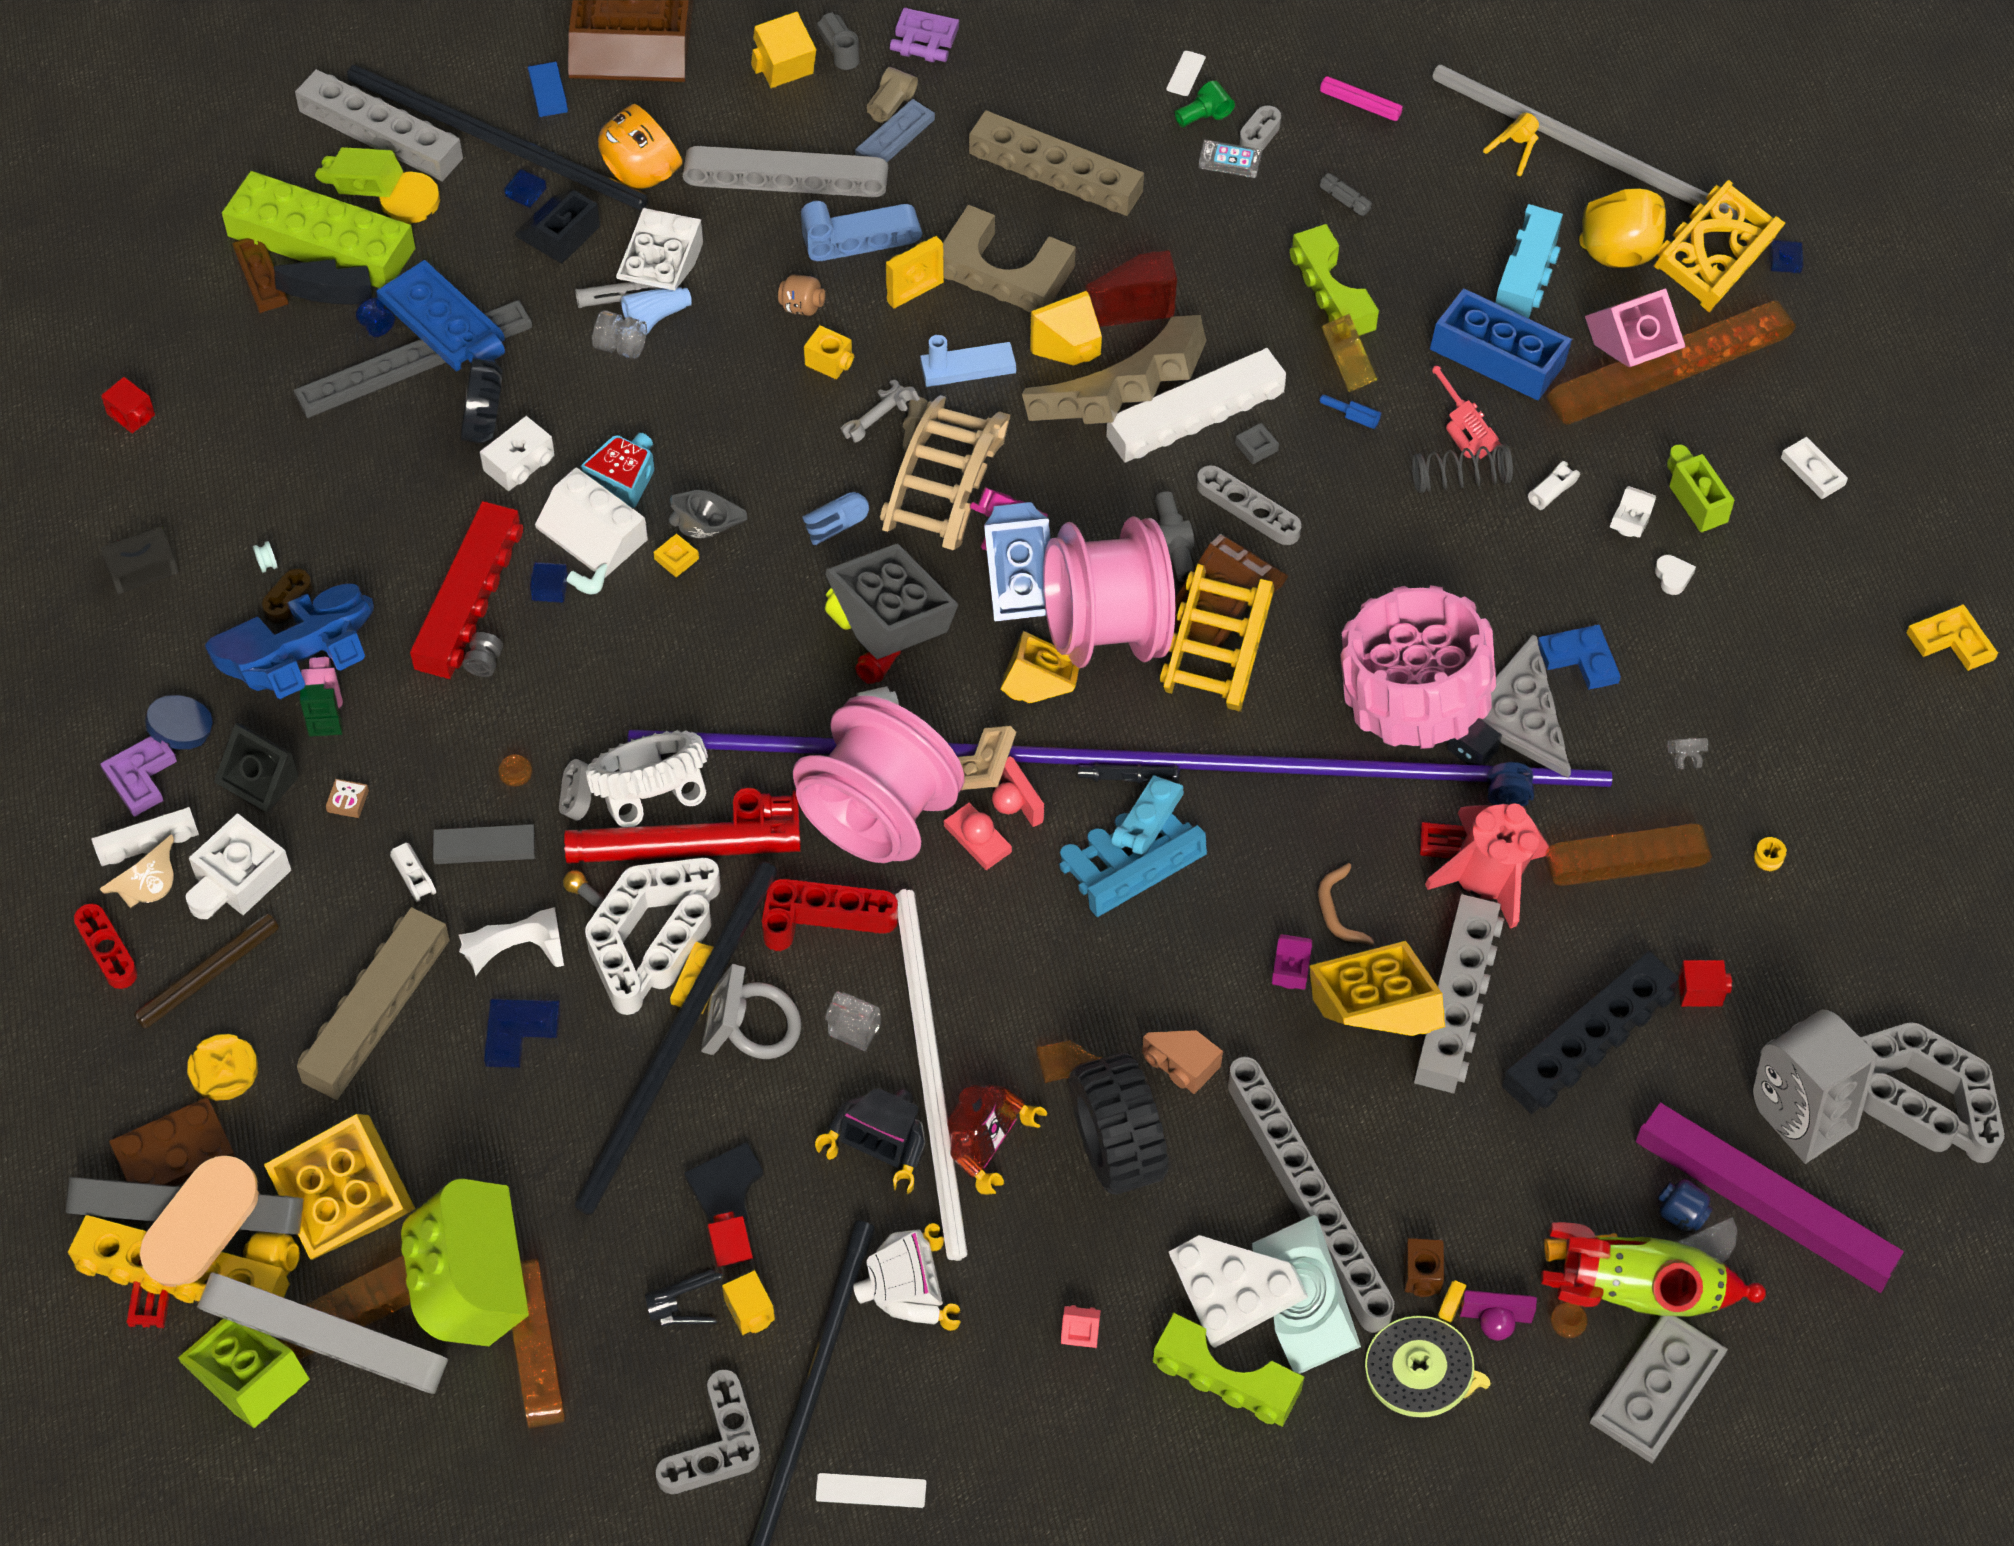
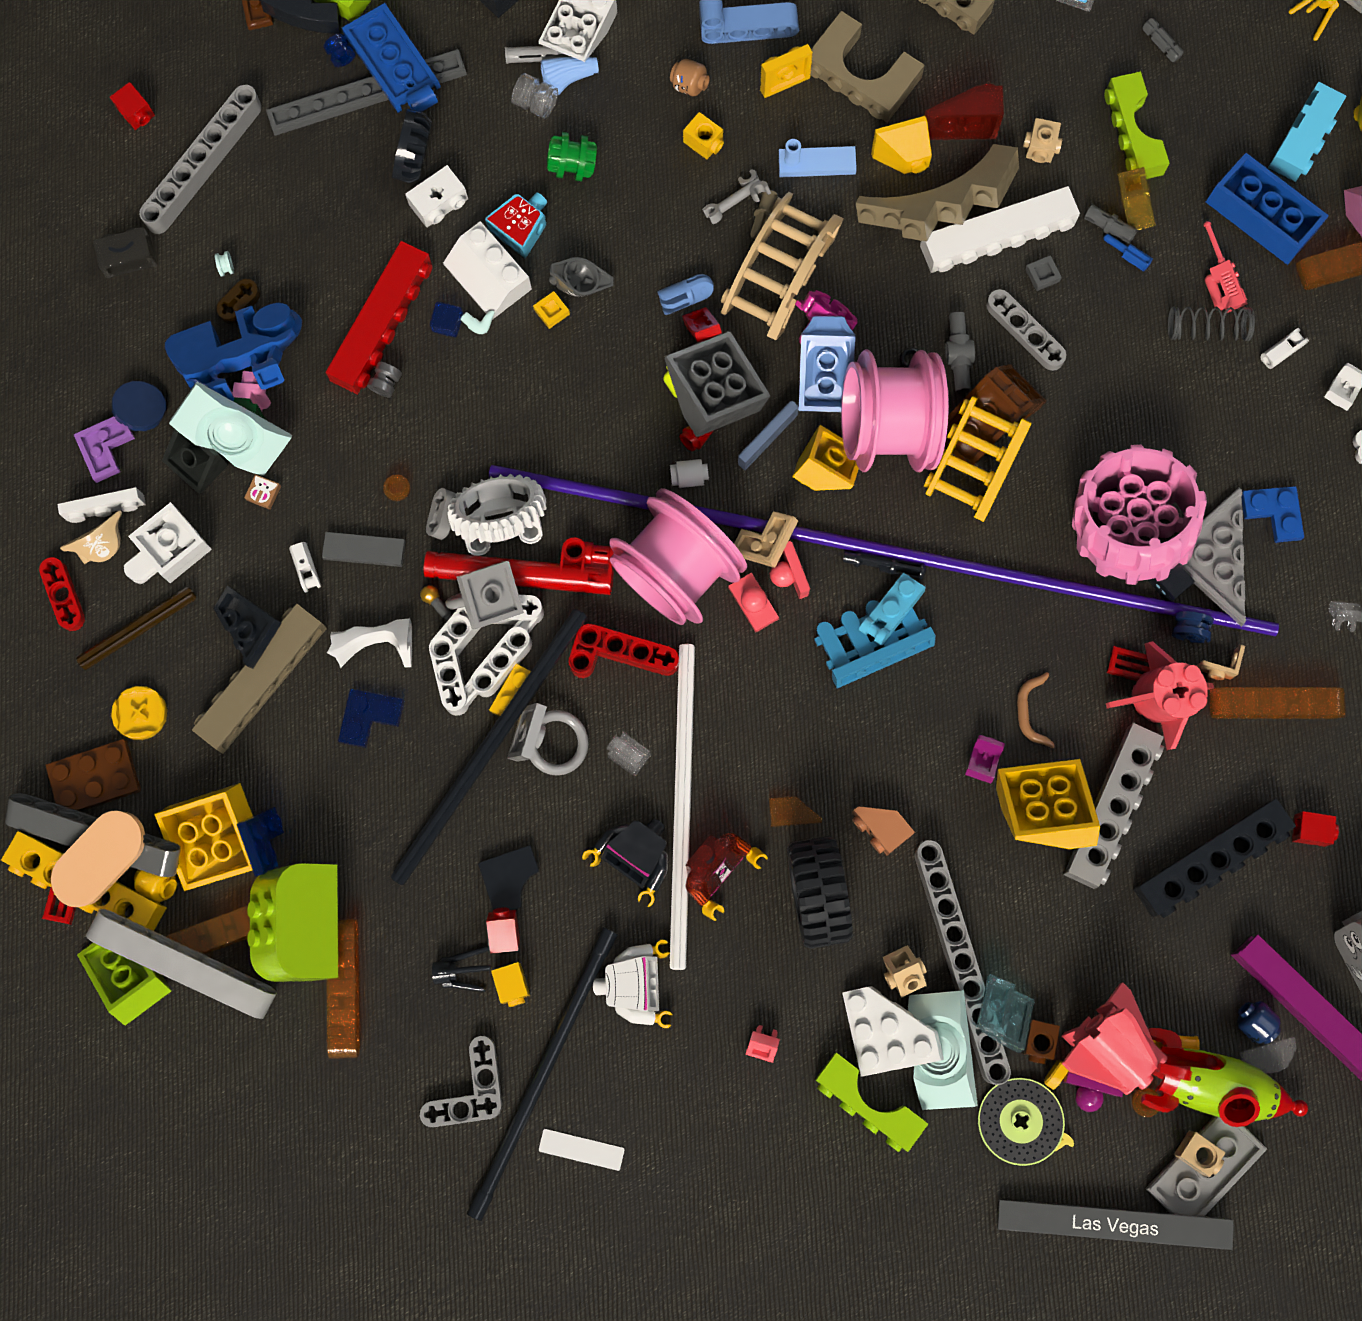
camera: 15 degrees right, 20 degrees up
(220, 450) = (201, 170): none -> light grey beam
(303, 721) = (229, 429): none -> light aqua slope
(351, 938) = (247, 623): none -> black wing
(404, 1172) = (256, 838): none -> clear blue plate
(651, 853) = (487, 595): none -> light grey tile
(674, 390) = (571, 156): none -> green piece
(861, 543) = (701, 325): none -> red tile
(962, 653) = (768, 435): none -> sand blue tile
(1228, 307) = (1043, 141): none -> tan brick
(1241, 1211) = (904, 971): none -> tan brick
(1325, 383) = (1110, 224): none -> dark grey pin
(1373, 1237) = (1005, 1013): none -> clear light blue slope
(1514, 1241) = (1114, 1045): none -> coral brick
(1557, 829) = (1220, 672): none -> tan bracket
(1559, 1463) = (1115, 1224): none -> dark grey tile
(1644, 1345) = (1188, 1149): none -> tan brick

